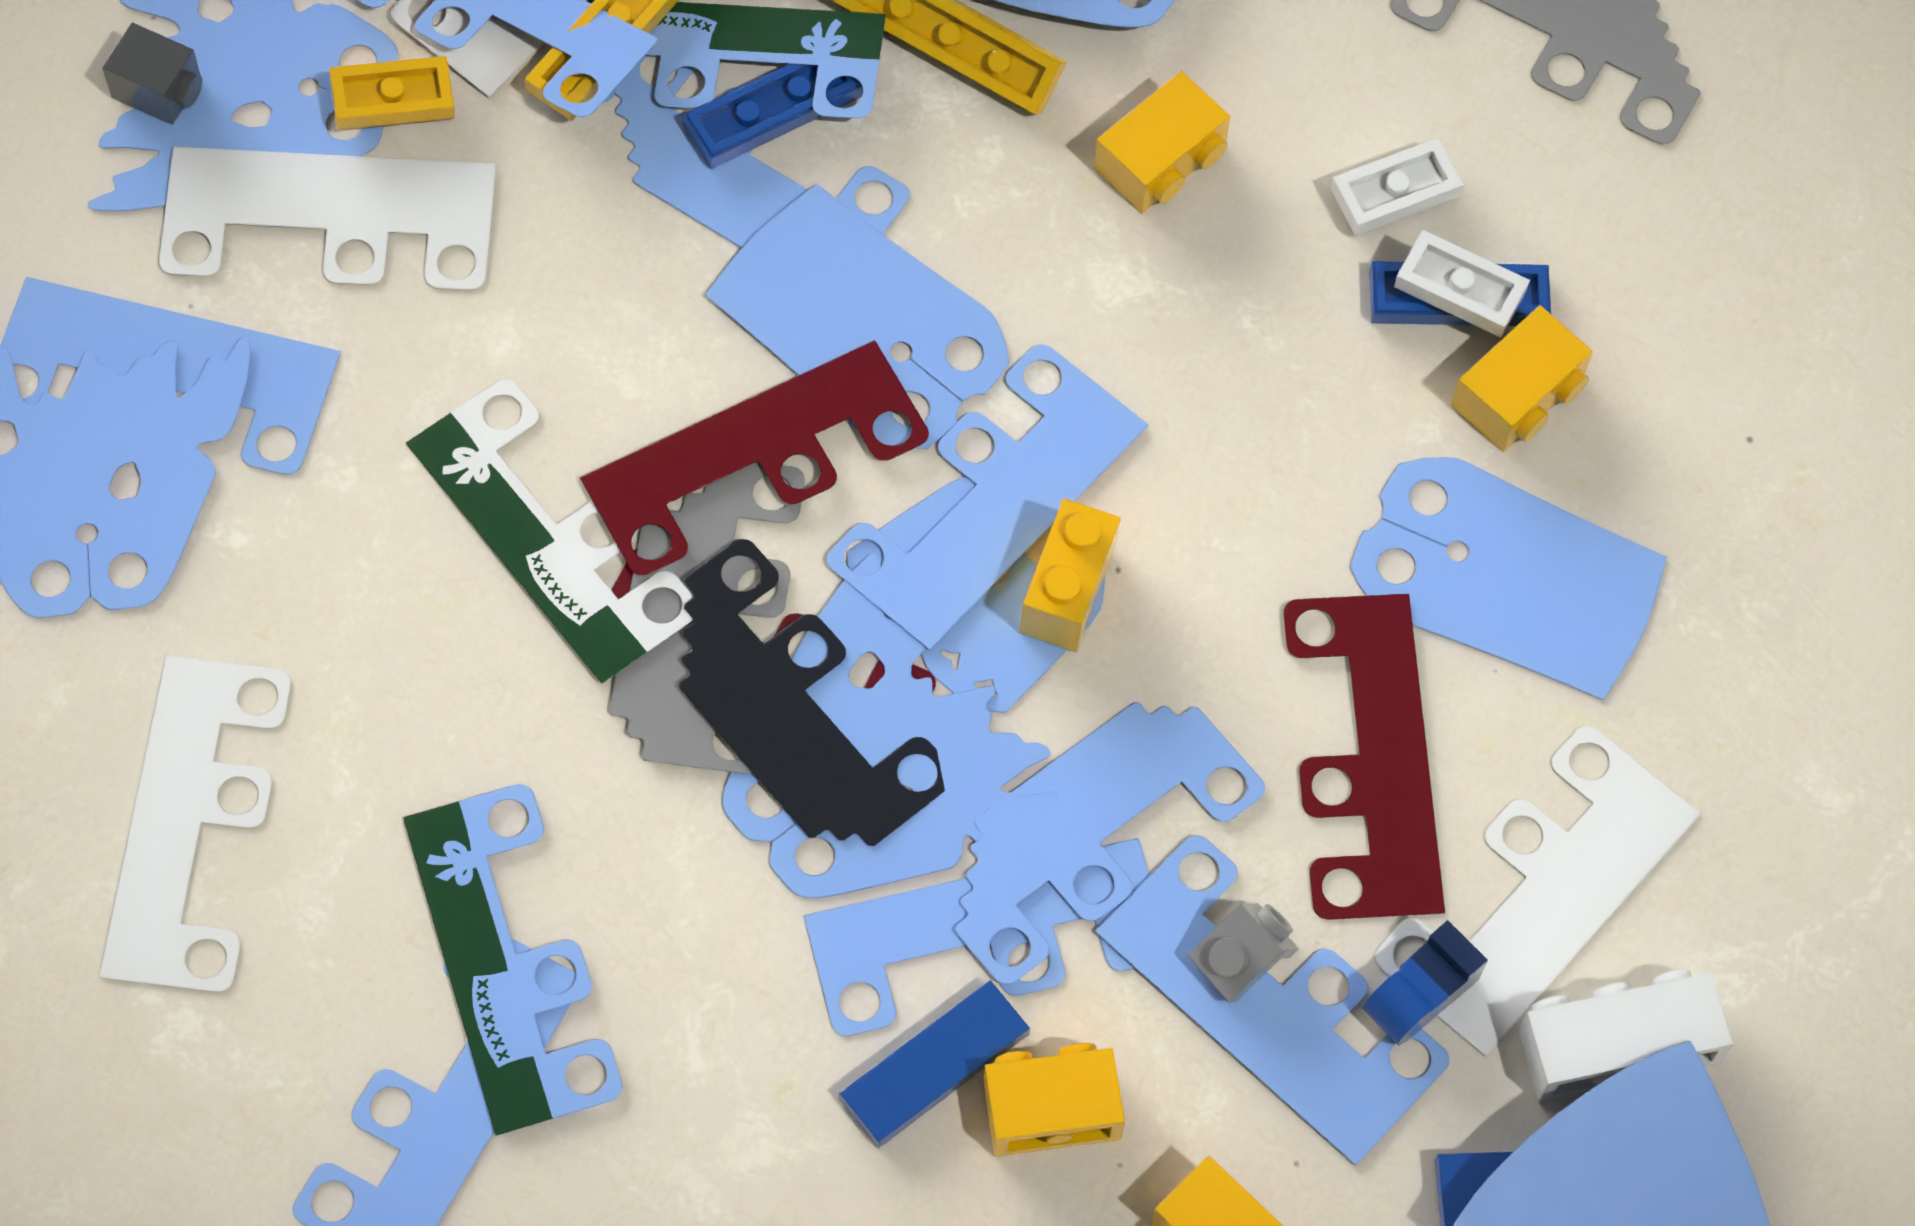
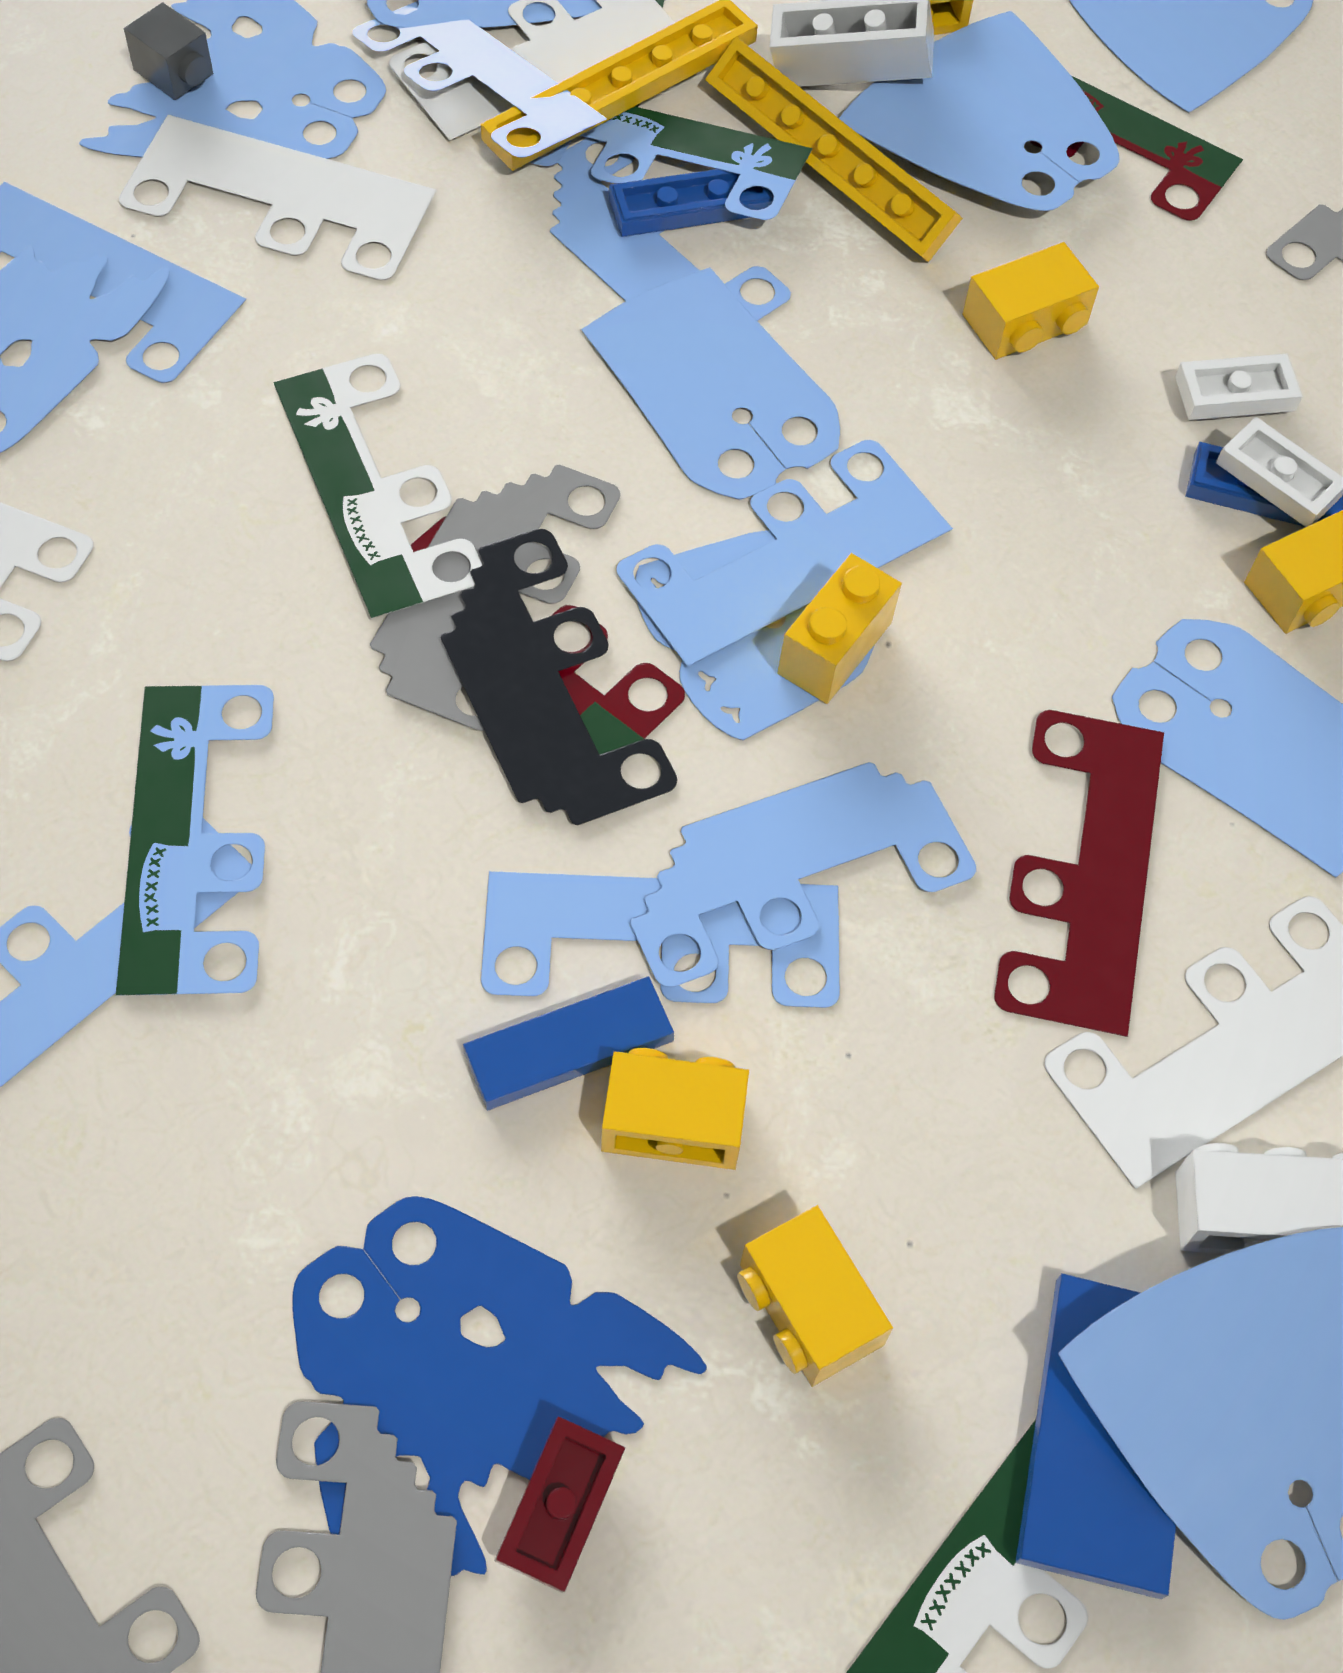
camera: 15 degrees right, 5 degrees down
(391, 92) = (364, 112): yellow plate -> none
(759, 429) = (592, 445): dark red piece -> none
(877, 723) = (695, 769): light blue piece -> none
(1243, 949) = (912, 1012): light grey bracket -> none
(1272, 1027) = (915, 1097): light blue piece -> none
(1426, 984) = (1092, 1096): leg -> none

